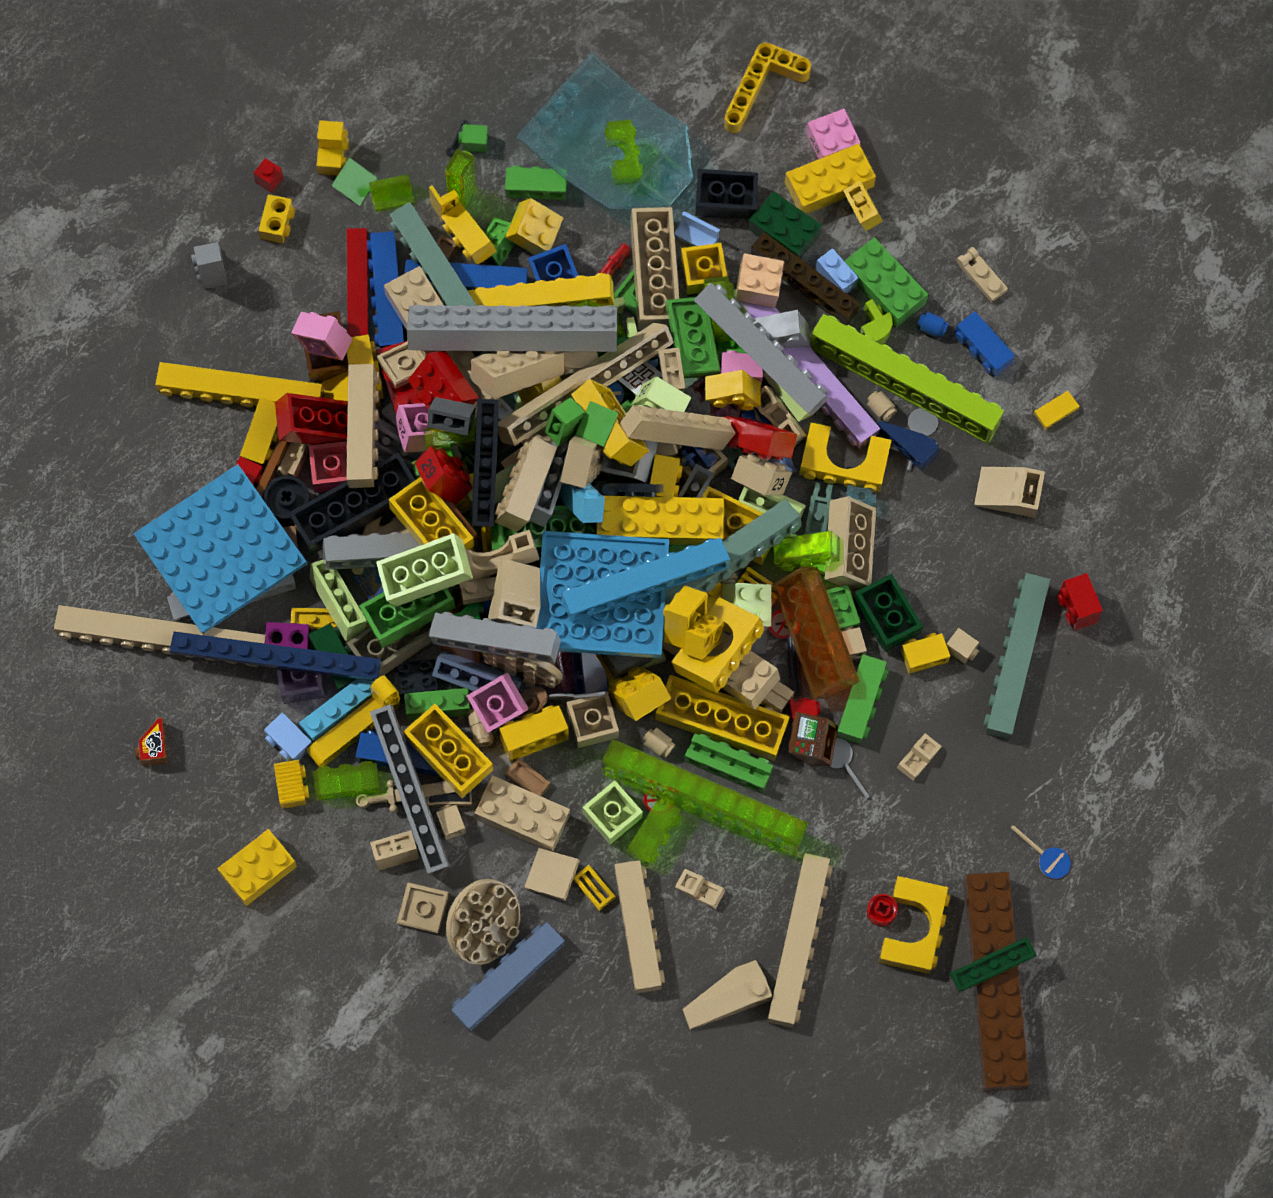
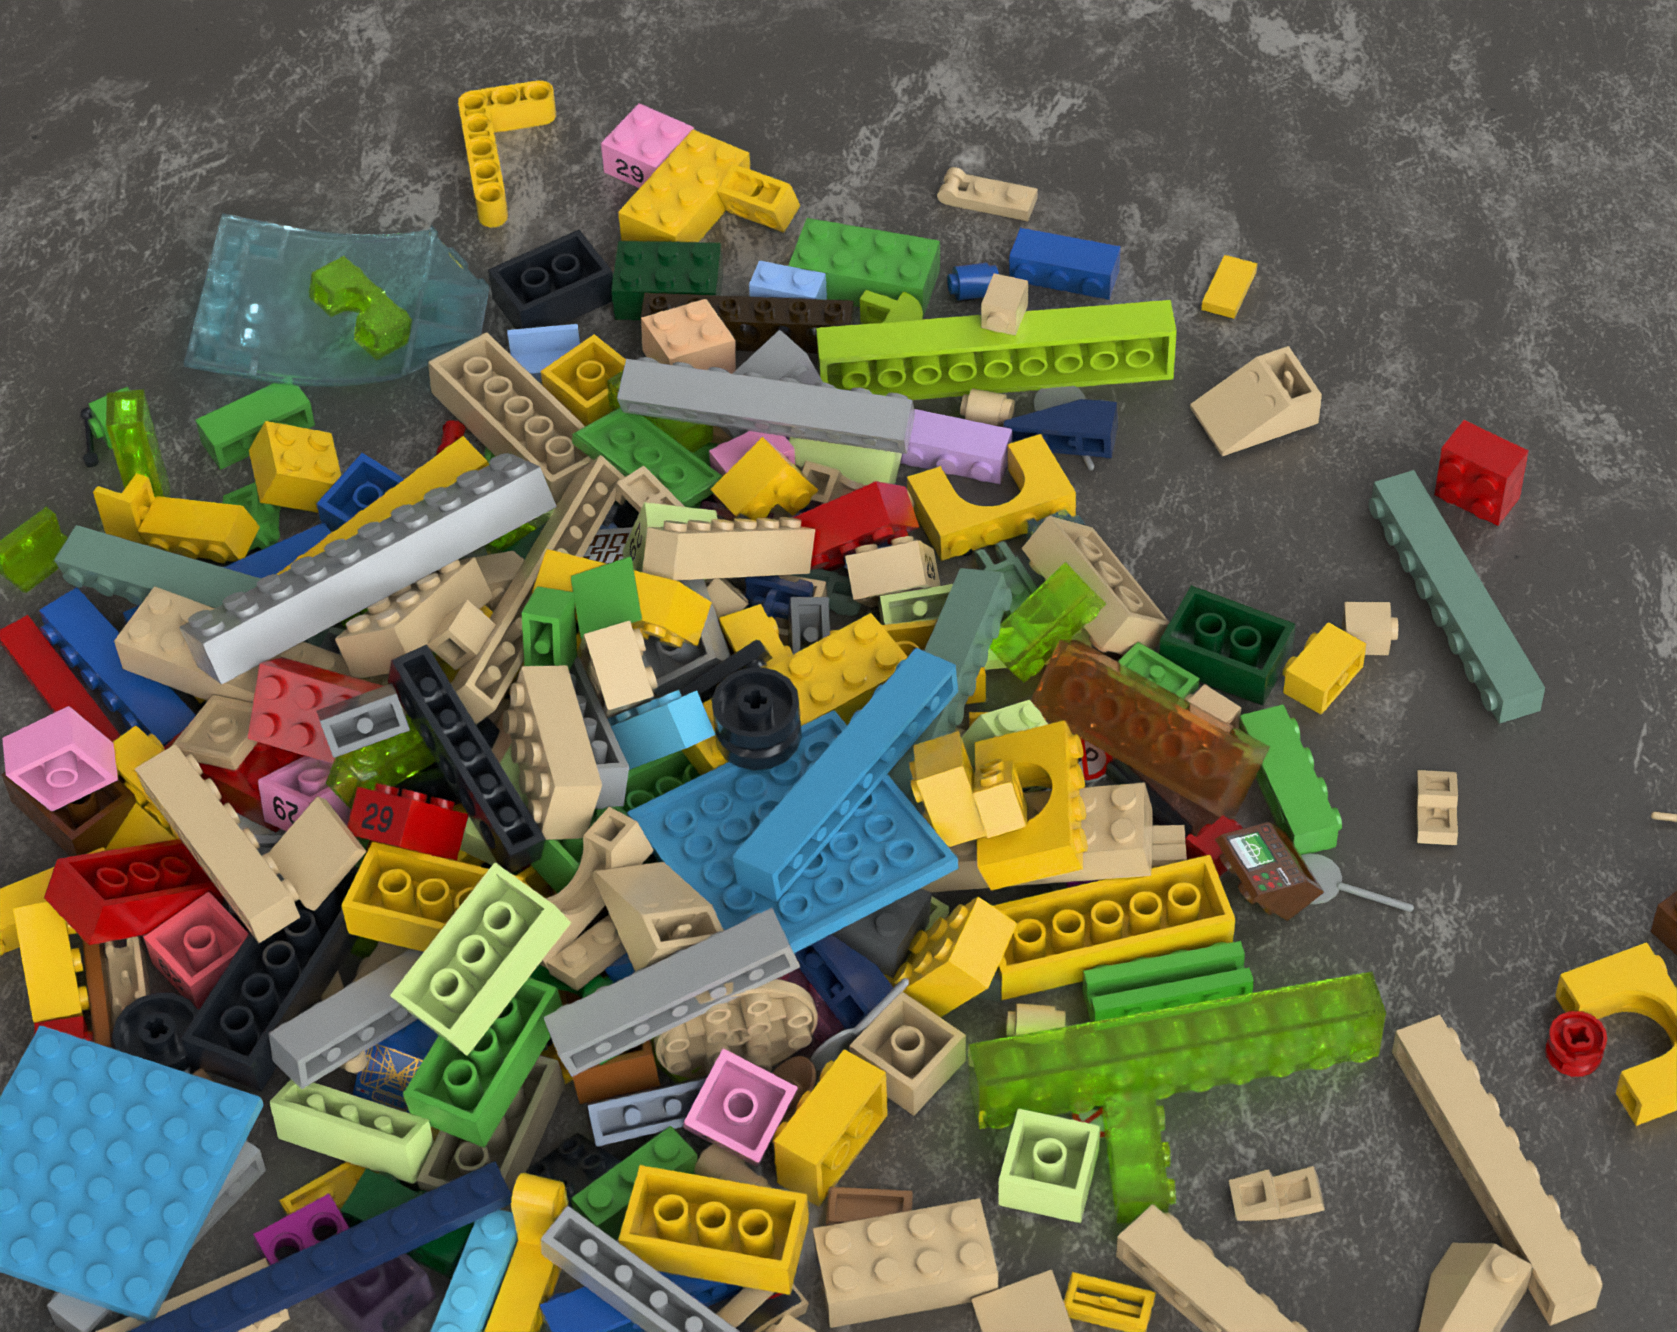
camera: 30 degrees left, 20 degrees down
(397, 463) = (316, 853): none -> tan tile
(528, 393) = (461, 634): none -> tan brick
(637, 522) = (757, 718): none -> black wheel
(917, 363) = (1004, 304): none -> tan brick

